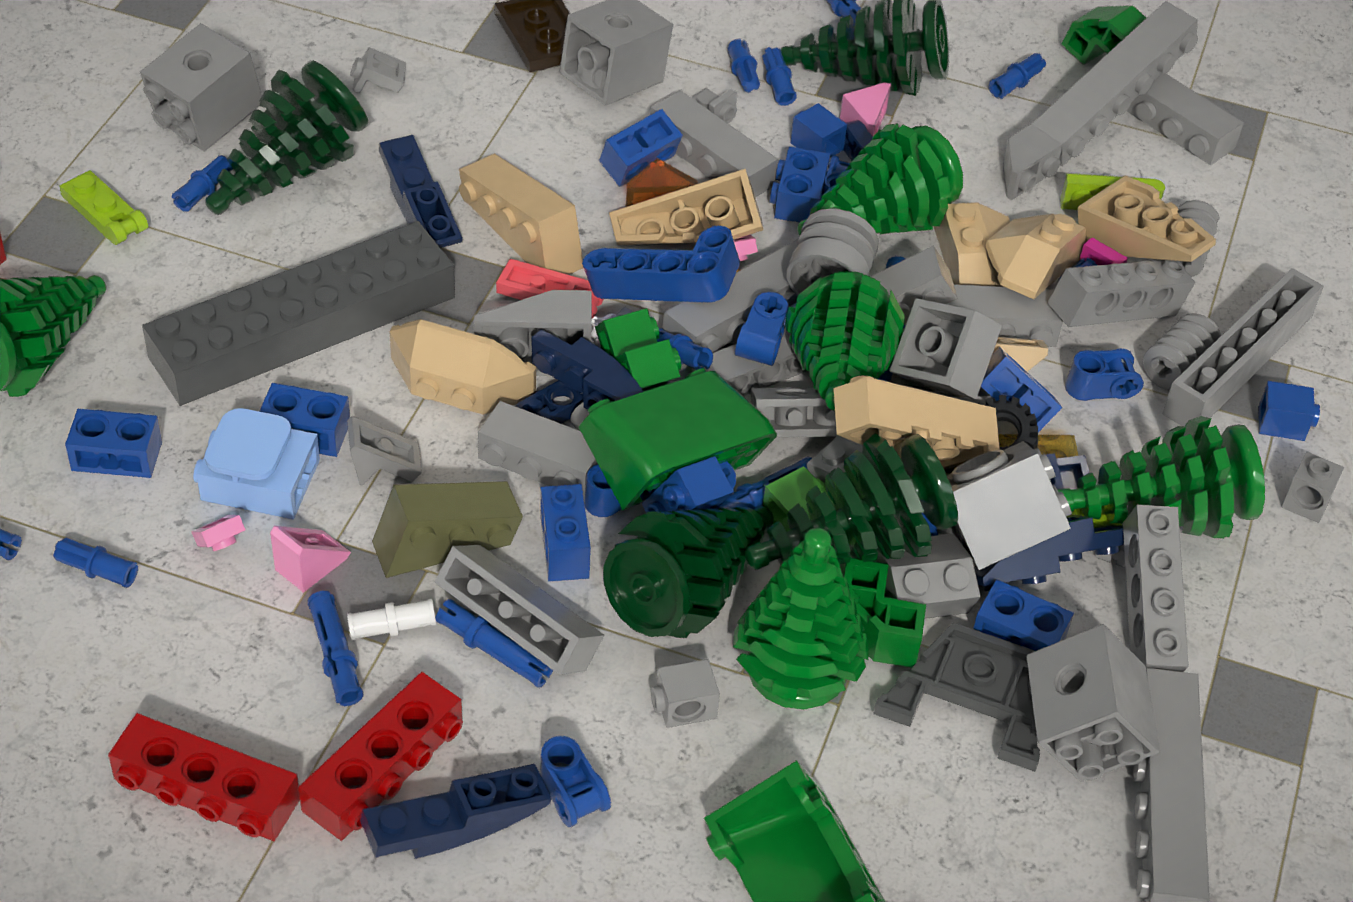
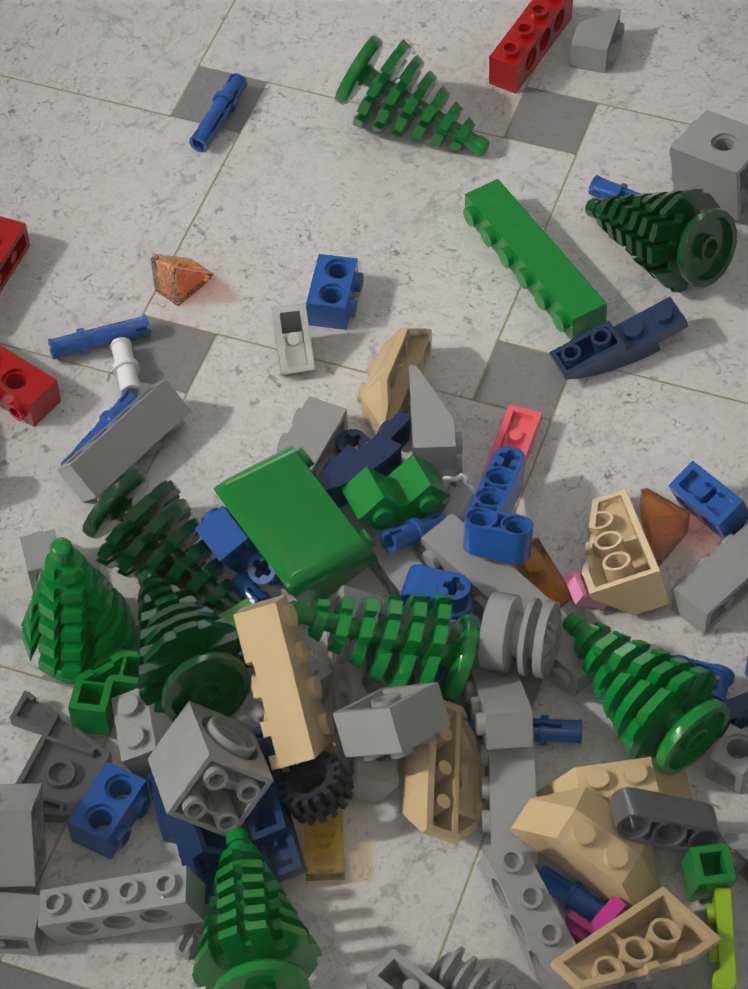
camera: 95 degrees right, 5 degrees up
(96, 562) = (183, 192): blue axle -> none
(103, 207) = (581, 138): lime plate -> none
(114, 443) = (301, 180): blue brick -> none
(219, 532) = (211, 254): bright pink plate -> none
(251, 565) = (178, 277): none -> clear orange slope
(257, 463) = (277, 265): light blue brick -> none
(281, 247) = (534, 259): none -> green brick
(298, 312) = (459, 277): dark grey brick -> none
(305, 554) = (188, 307): bright pink slope -> none
(429, 519) = (215, 388): olive wedge -> none
(524, 213) = (599, 415): tan wedge -> none
(565, 532) = (206, 465): blue brick -> none
(800, 183) = (690, 637): blue brick -> none
(1008, 378) = (370, 806): blue brick -> none
(1015, 196) = (664, 819): none -> dark grey beam
(1048, 188) = (707, 869): none -> green brick
(1100, 374) = (436, 916): blue piece -> none

